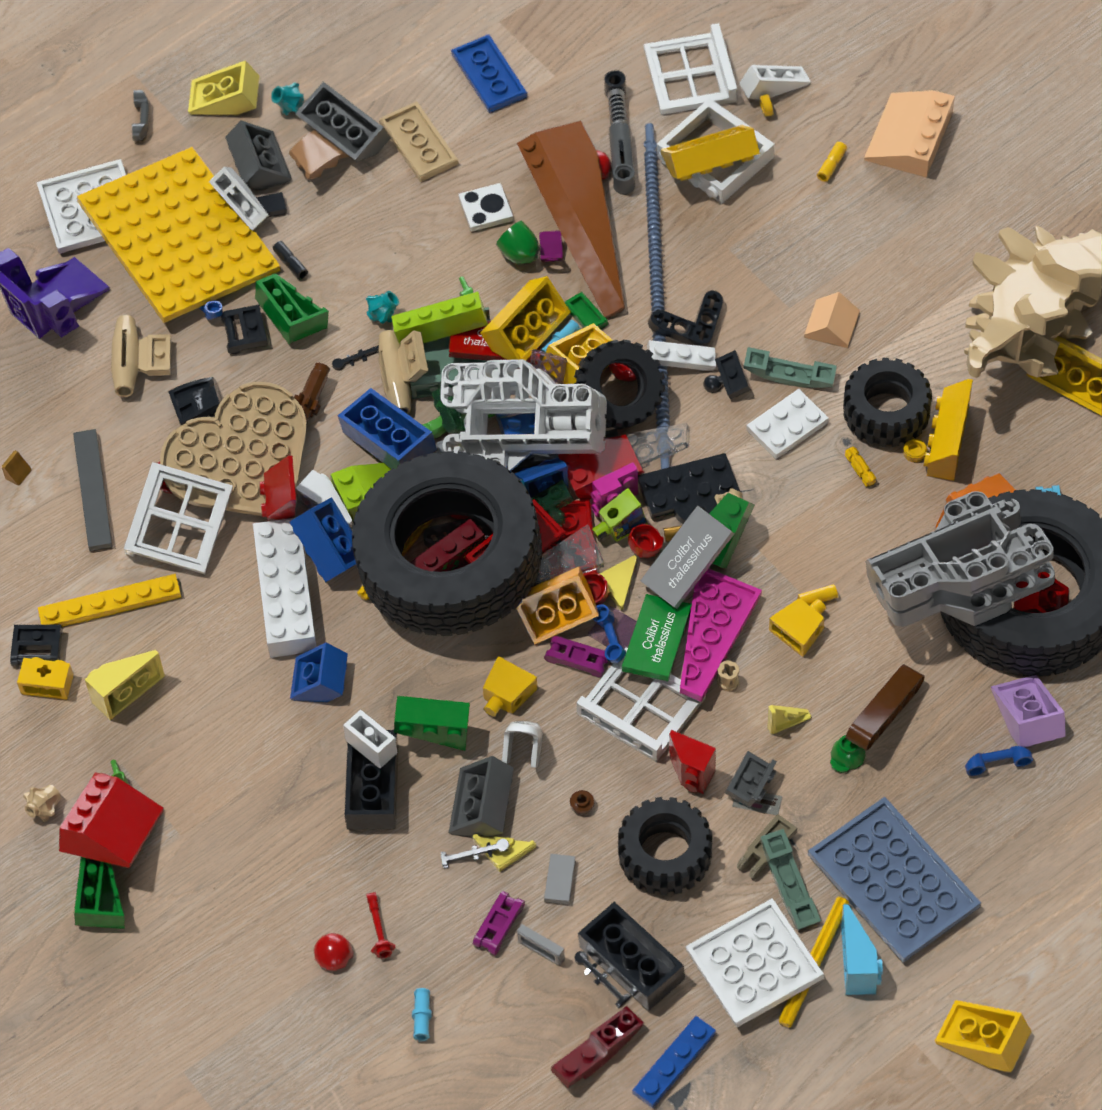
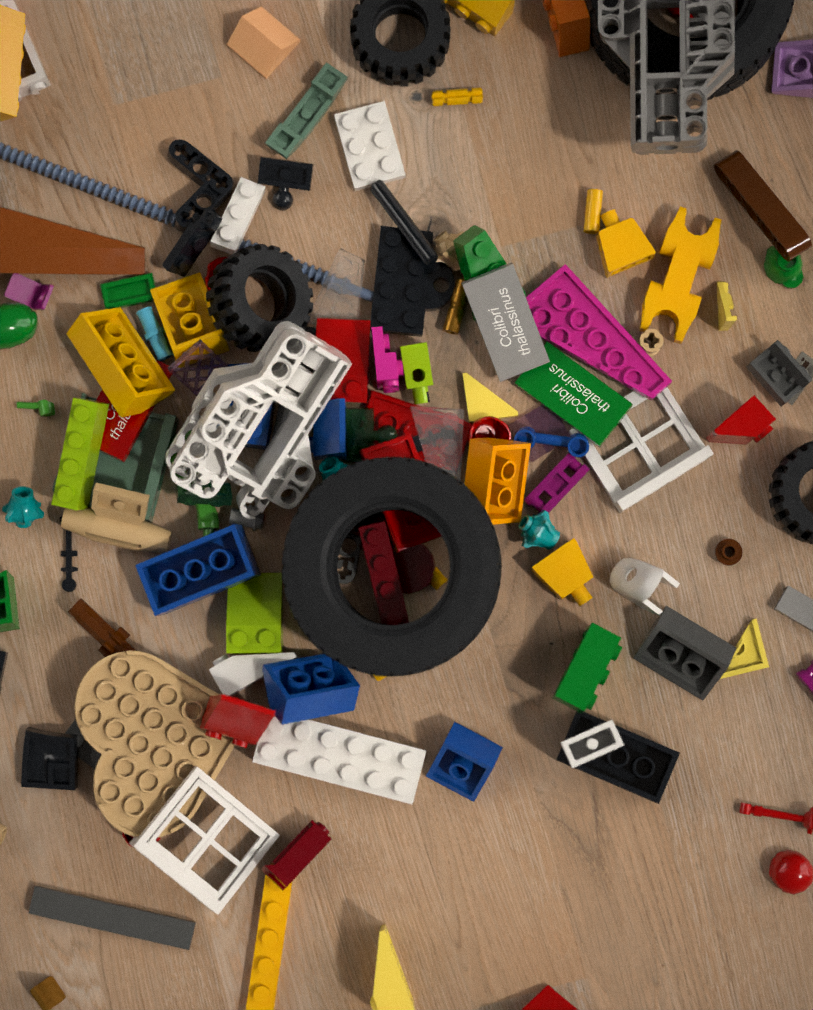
camera: 70 degrees left, 25 degrees up
(193, 586) = (297, 854): none -> dark red window
(502, 845) = (749, 654): piece -> none
(531, 653) = (538, 531): none -> teal rock
(641, 330) = (192, 243): none -> black hinge
(645, 541) = (453, 355): red hair -> none
(734, 464) = (404, 222): none -> black axle
(781, 677) = (674, 295): none -> yellow piece
(914, 450) = (462, 33): yellow tile -> none

